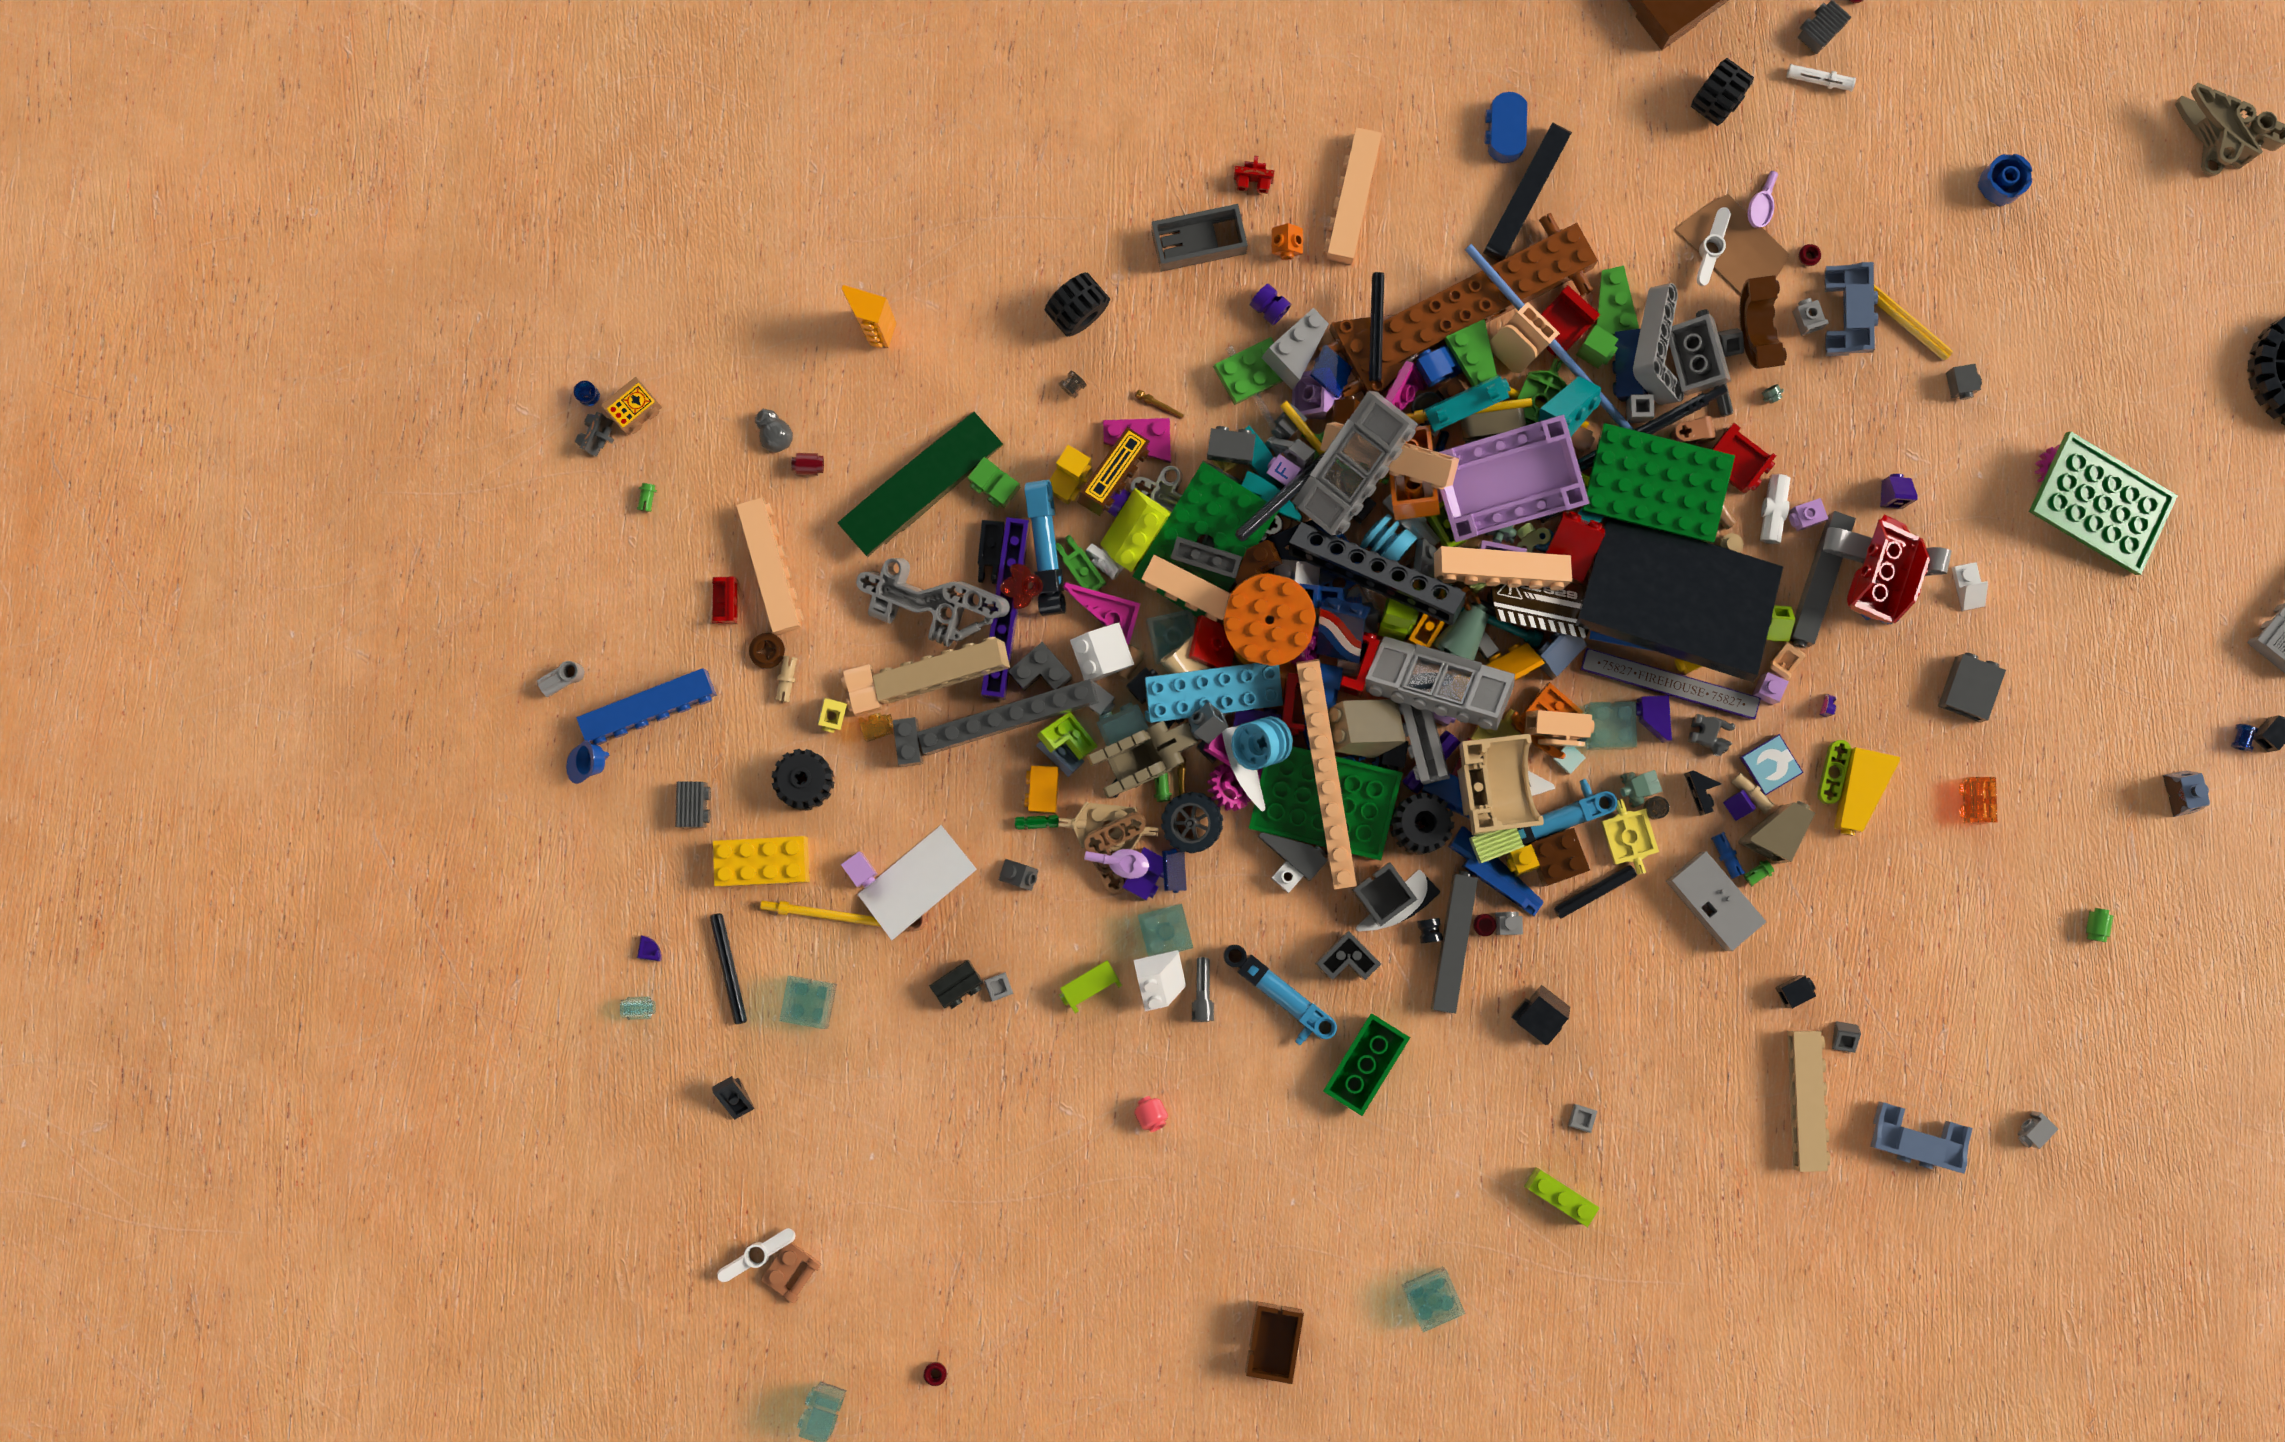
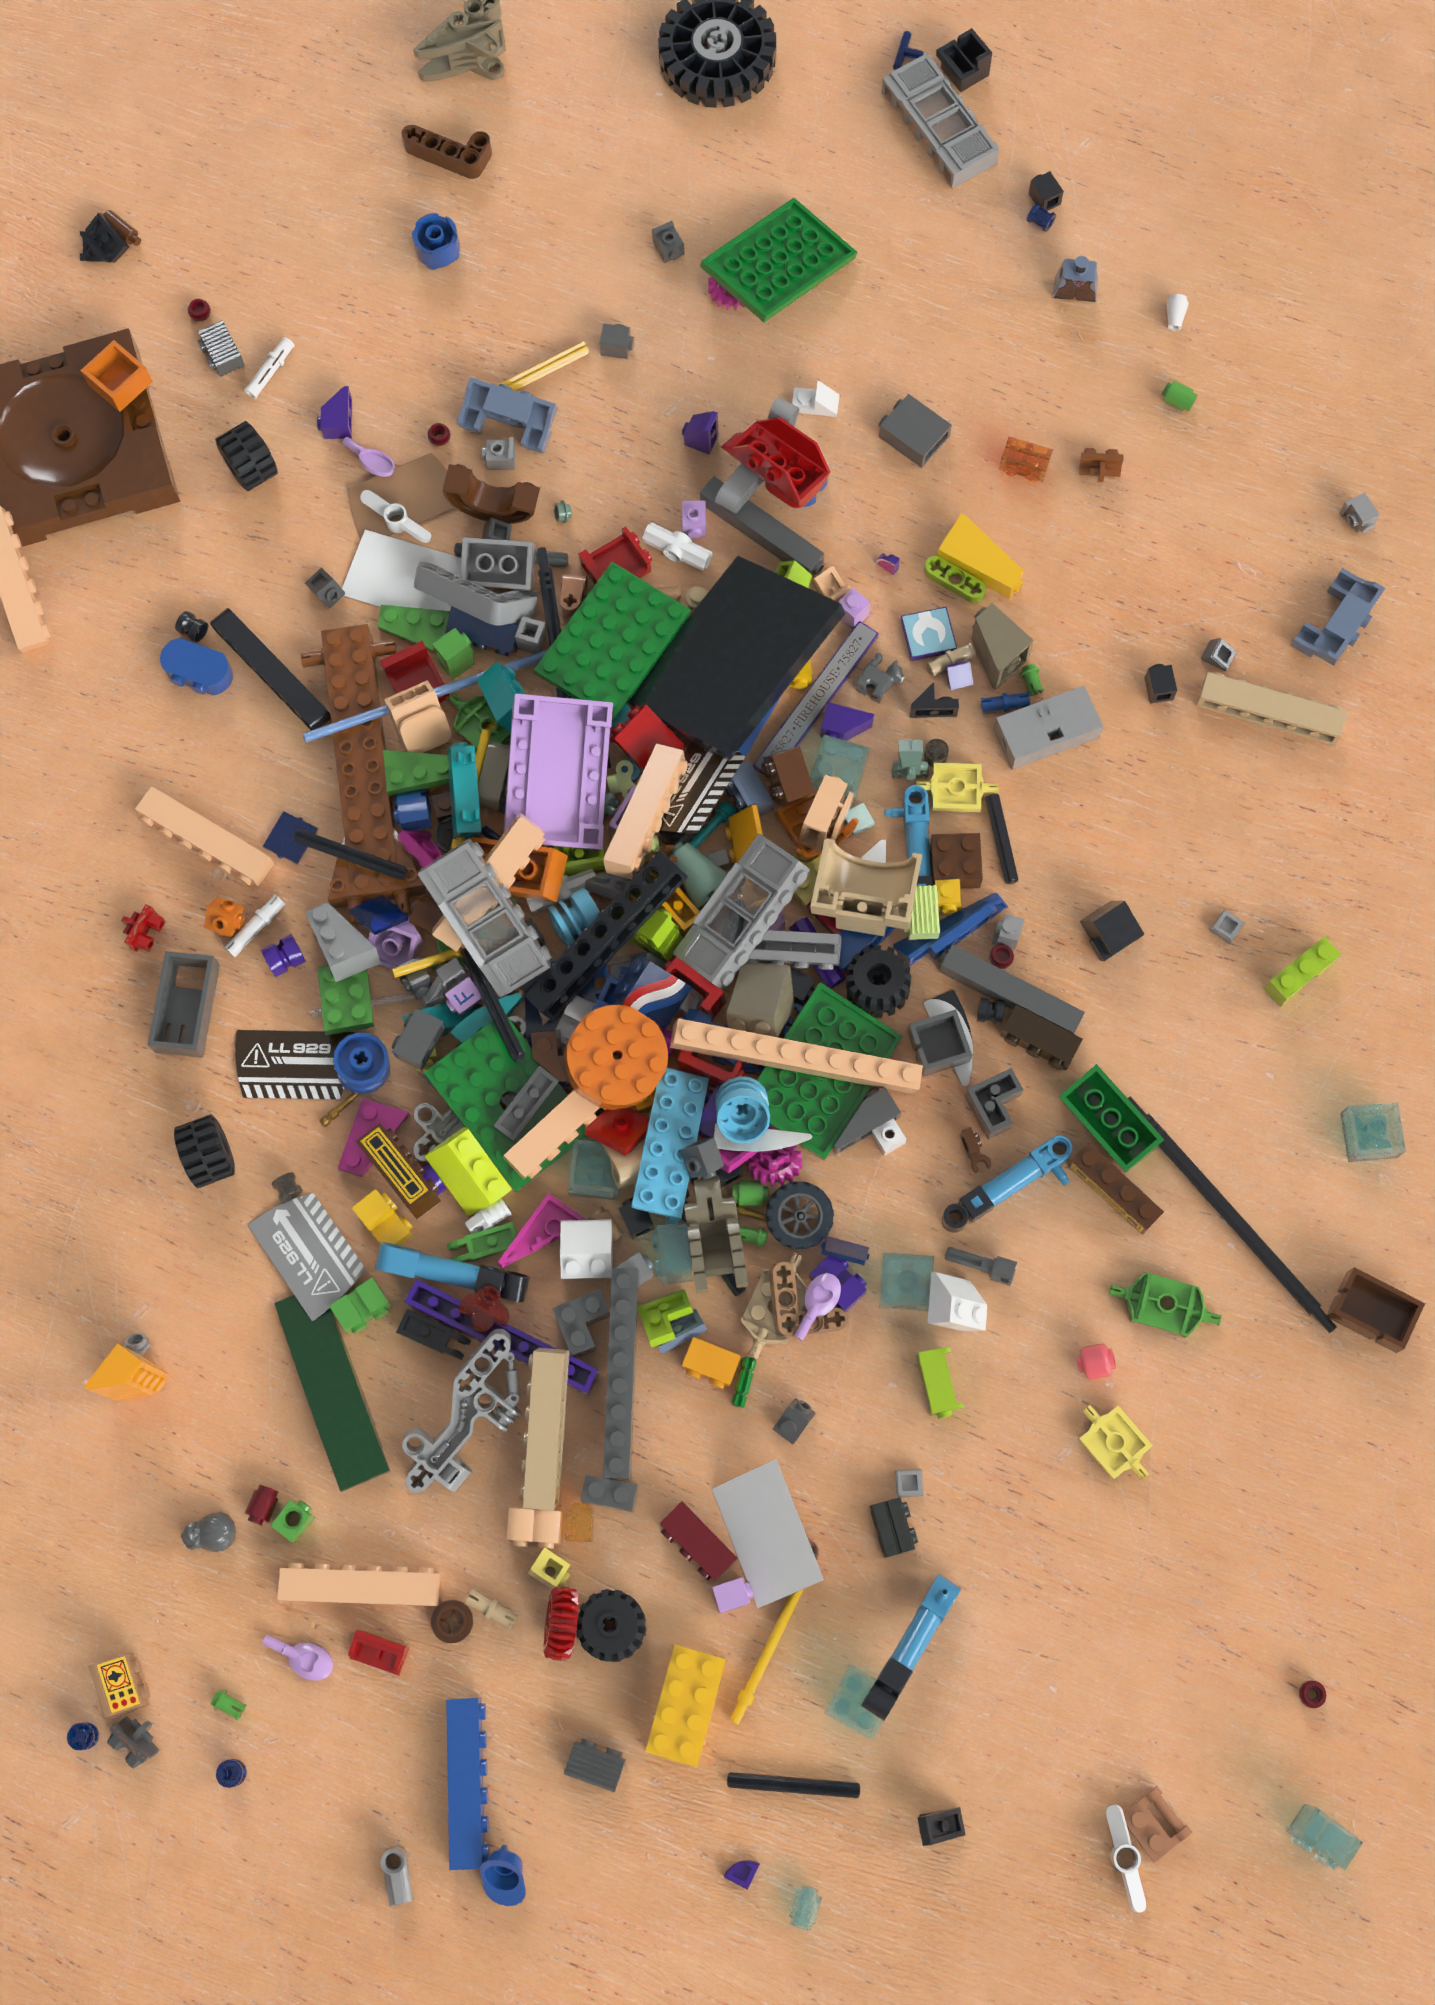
camera: 70 degrees left, 10 degrees down
(599, 523) = (236, 1770): none -> clear blue wheel
(701, 545) = (304, 1658): none -> lavender piece
(790, 738) = (561, 1623): none -> red gear
(795, 489) = (282, 1524): none -> bright green brick
(863, 1029) = (911, 1647): none -> dark azure piece
(892, 827) = (697, 1542): none -> dark red brick
(902, 312) = (137, 1342): none -> light grey plate
(1024, 423) = (308, 1252): none -> light grey sticker
(1088, 1150) = (1115, 1442): none -> light yellow plate
(1181, 349) = (288, 1064): none -> dark brown sticker
(1197, 773) = (750, 1193): none -> bright green brick
(1200, 393) = (374, 1058): none -> blue wheel
(1213, 1141) = (1145, 1308): none -> bright green plate
(1293, 271) = (253, 927): none -> white pin
(1305, 950) = (971, 1144): none -> reddish brown plate
(1306, 1087) = (1115, 1188): none -> reddish brown brick
(1316, 1197) = (1239, 1224): none -> black axle
(1382, 262) = (281, 837): none -> clear blue piece
(1420, 982) = (1041, 1038): none -> dark brown brick
(1543, 108) = (191, 626): none -> black wheel
(1587, 678) = (788, 775): none -> reddish brown piece
(1622, 210) = (325, 588): none -> dark grey bracket
(1659, 257) = (386, 572): none -> white sticker
(1794, 156) = (337, 416): none -> dark purple slope
(1999, 872) = (1101, 464): none -> dark orange hips
(2091, 387) = (668, 242): none -> dark grey brick
(2107, 124) = (461, 159): none -> reddish brown beam
(2190, 896) = (1176, 310): none -> white cone

